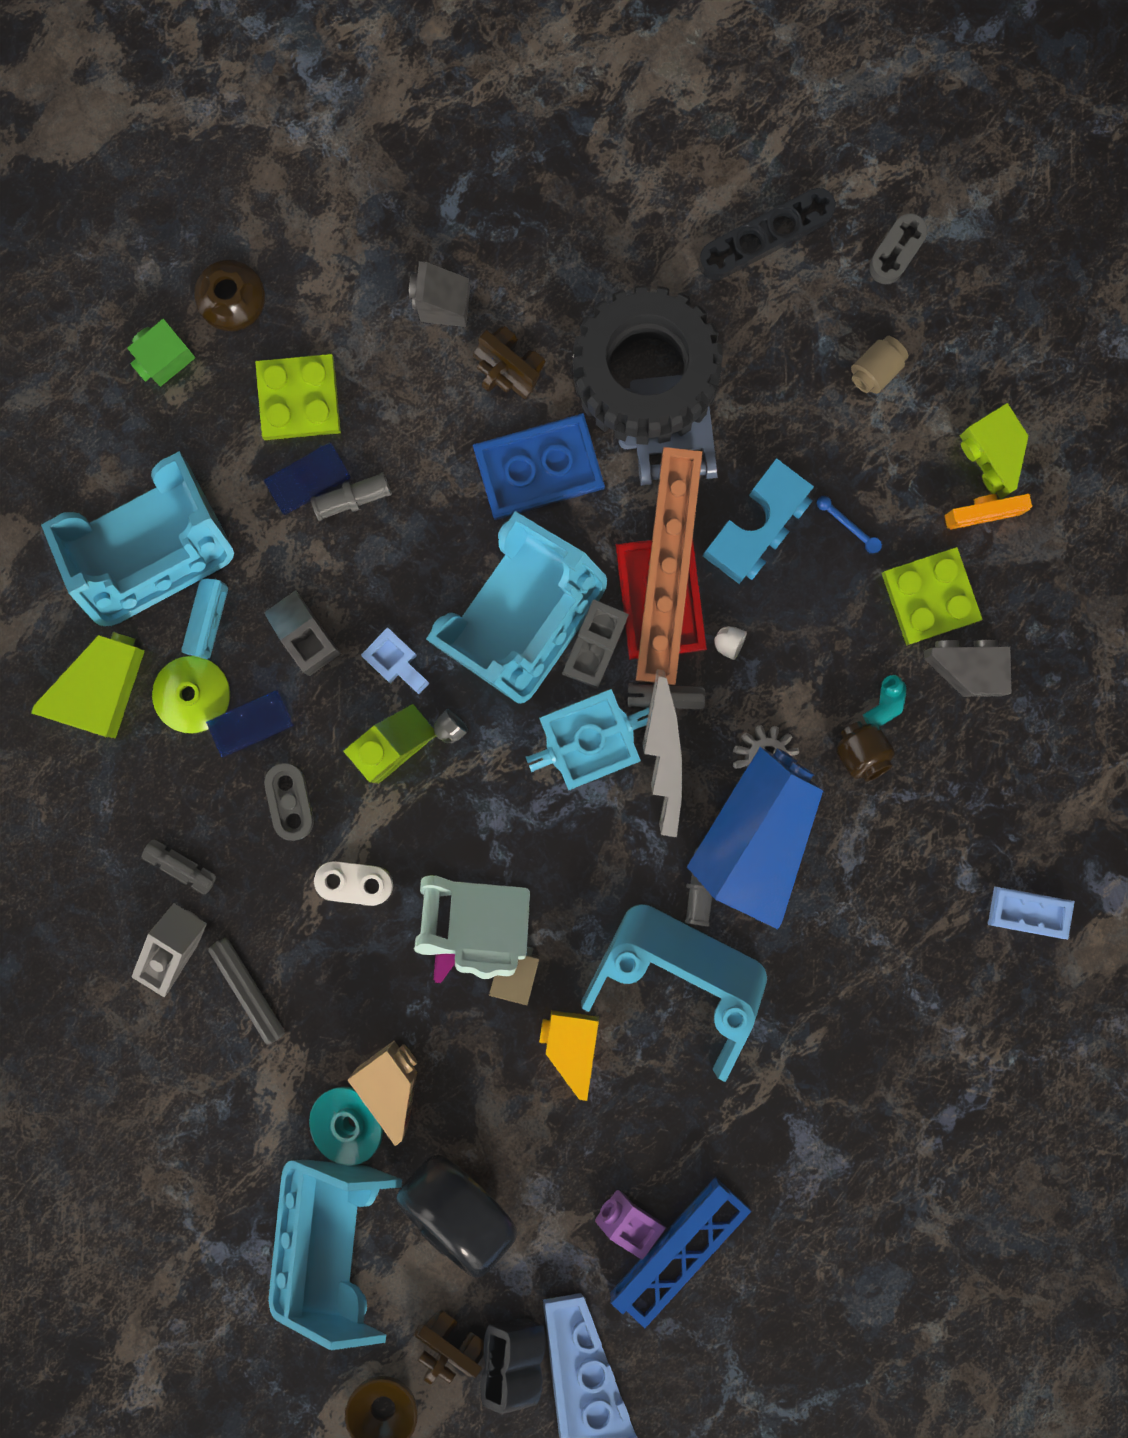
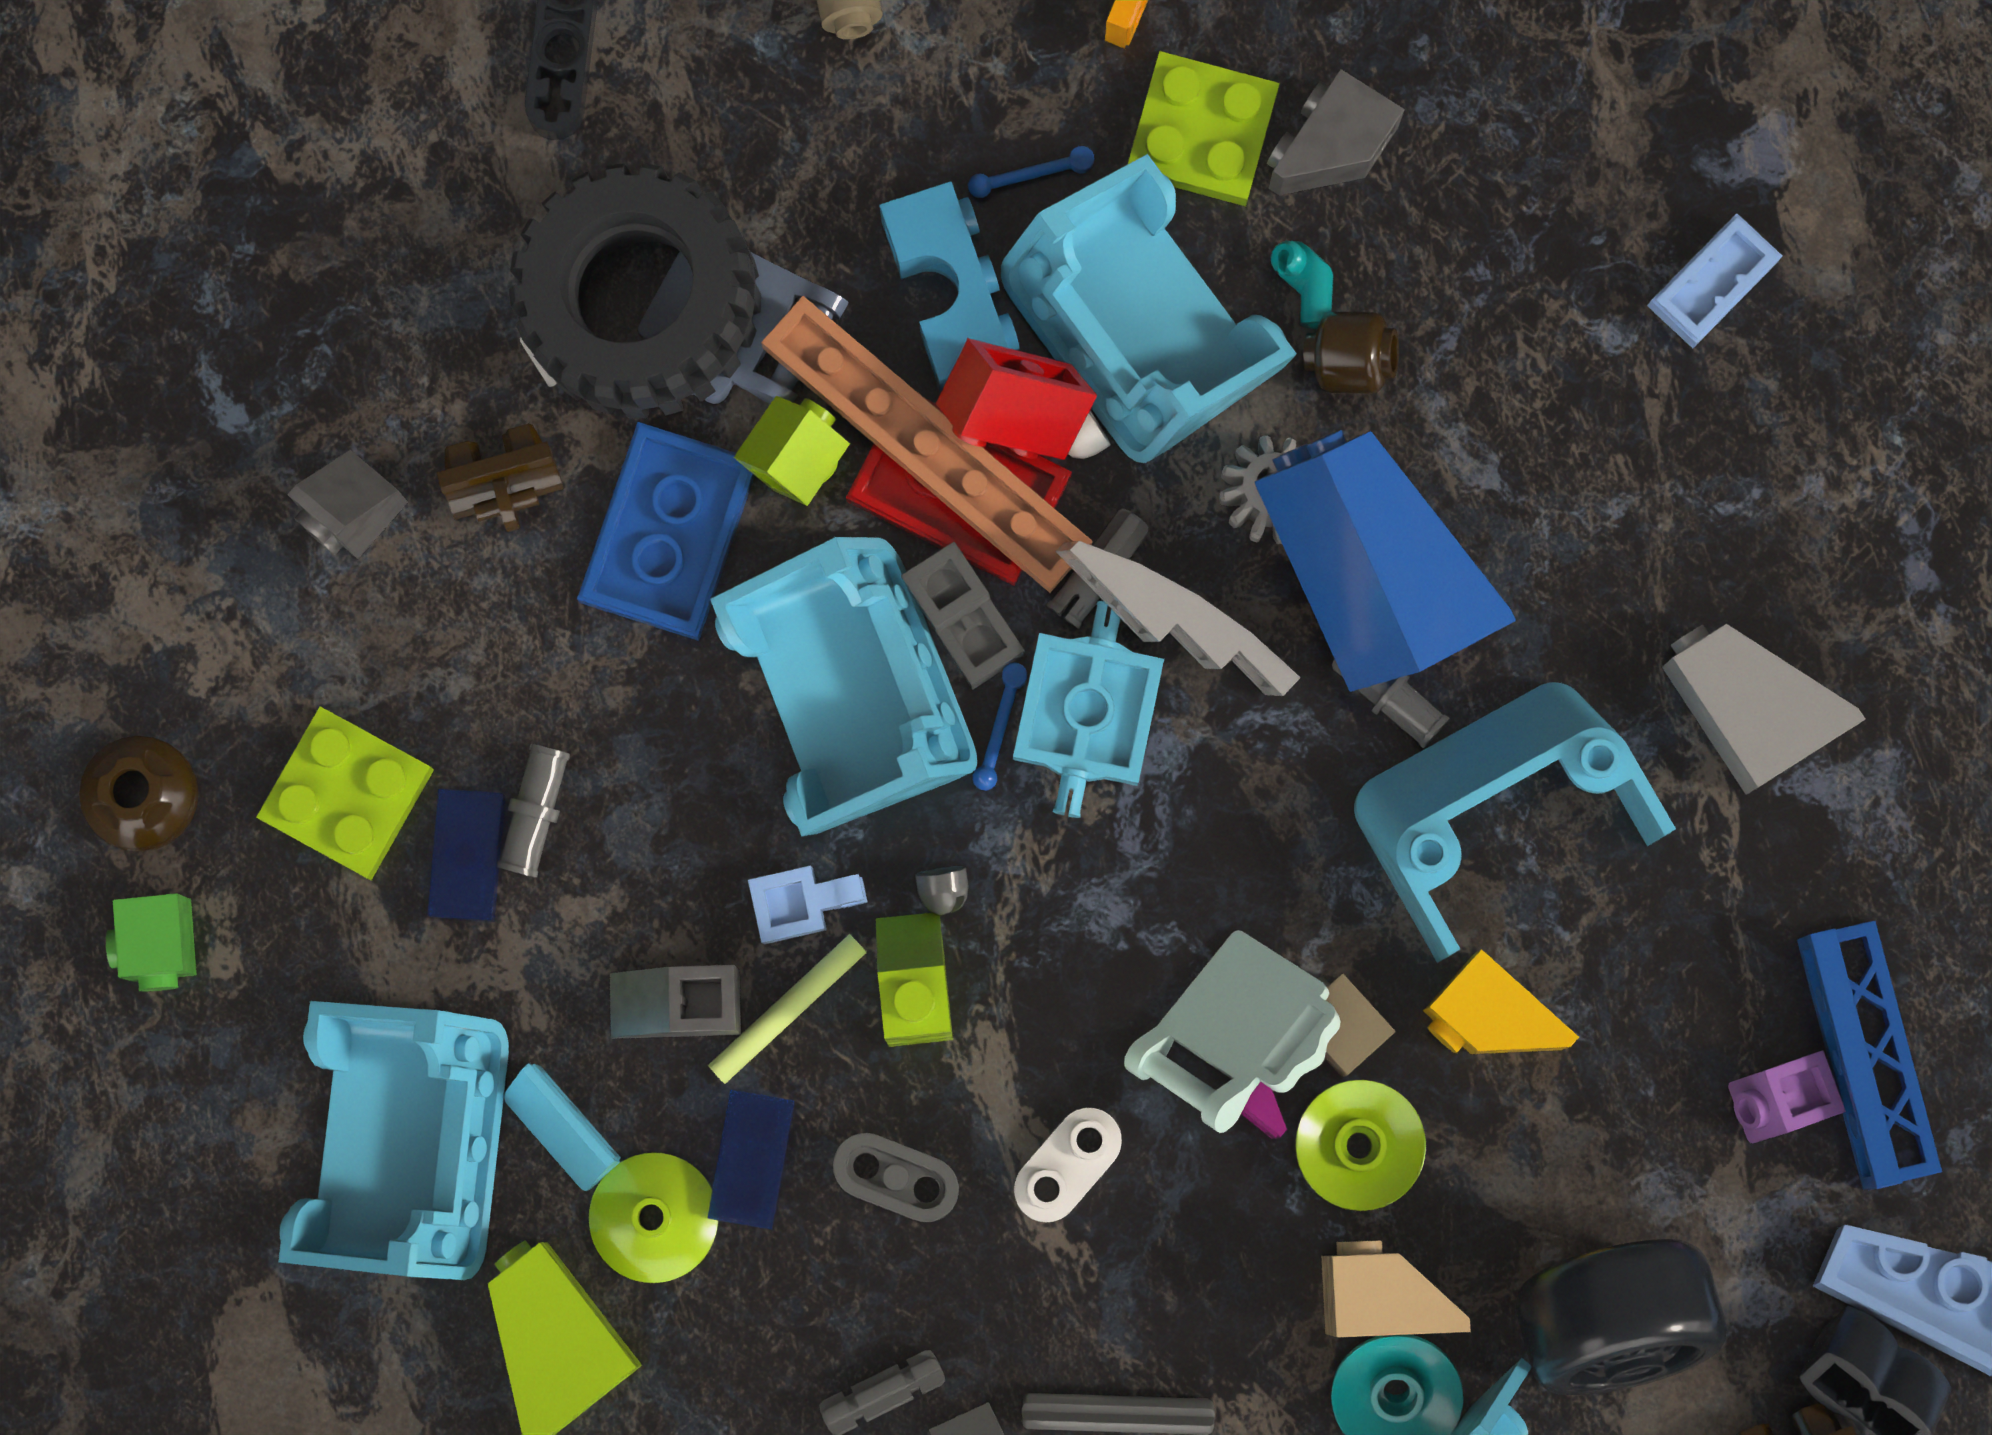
camera: 50 degrees left, 5 degrees down
(338, 690) = (787, 1009): none -> yellowish green bar
(445, 1039) = (1394, 1139): none -> lime dish
(582, 691) = (1013, 677): none -> blue hinge
(621, 500) = (793, 448): none -> lime brick
(721, 596) = (1015, 400): none -> red brick
(810, 627) = (1135, 314): none -> medium azure windscreen
(821, 1079) = (1754, 704): none -> light grey slope

